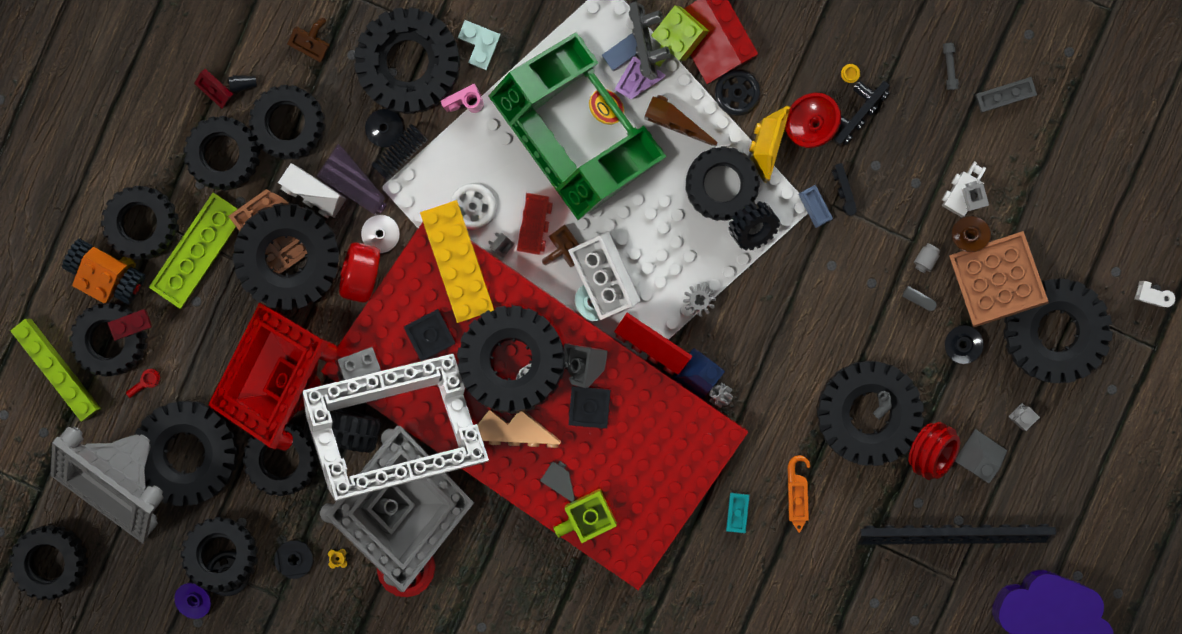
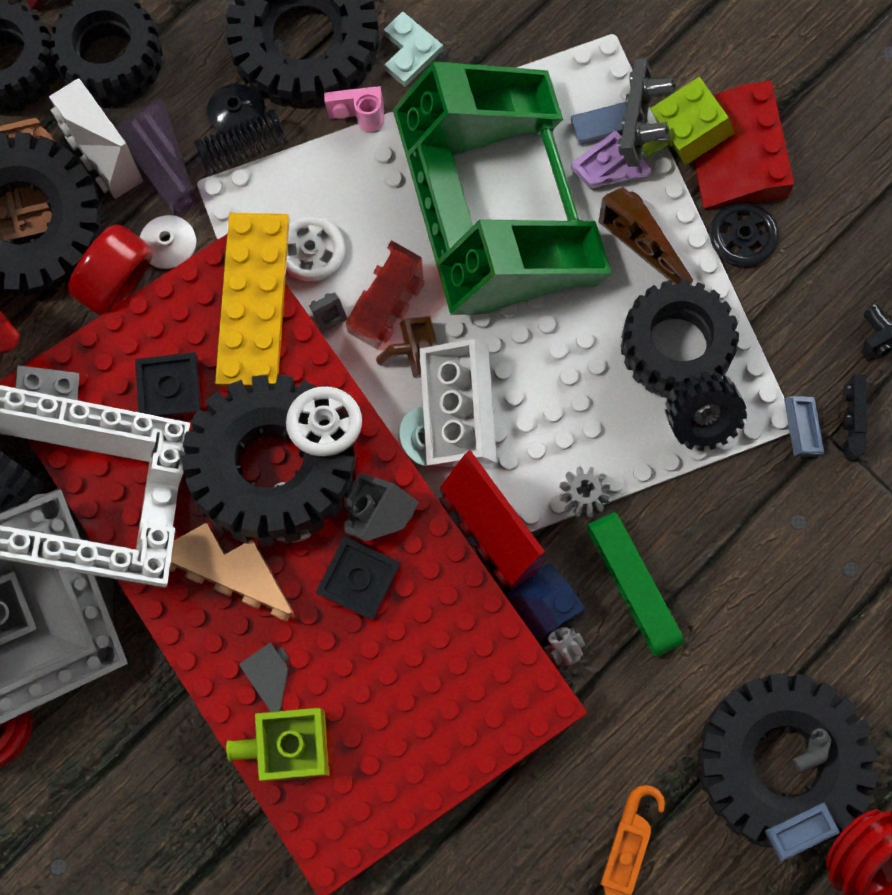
camera: 25 degrees right, 15 degrees down
(520, 321) = (327, 445): none -> white plate
(601, 110) = (543, 182): piece -> none
(737, 512) = (523, 840): teal plate -> none
(748, 342) = (635, 584): none -> green beam
(767, 142) = (766, 307): yellow wedge -> none
(806, 113) = (842, 302): red dish -> none
(890, 451) = (802, 831): none -> sand blue tile

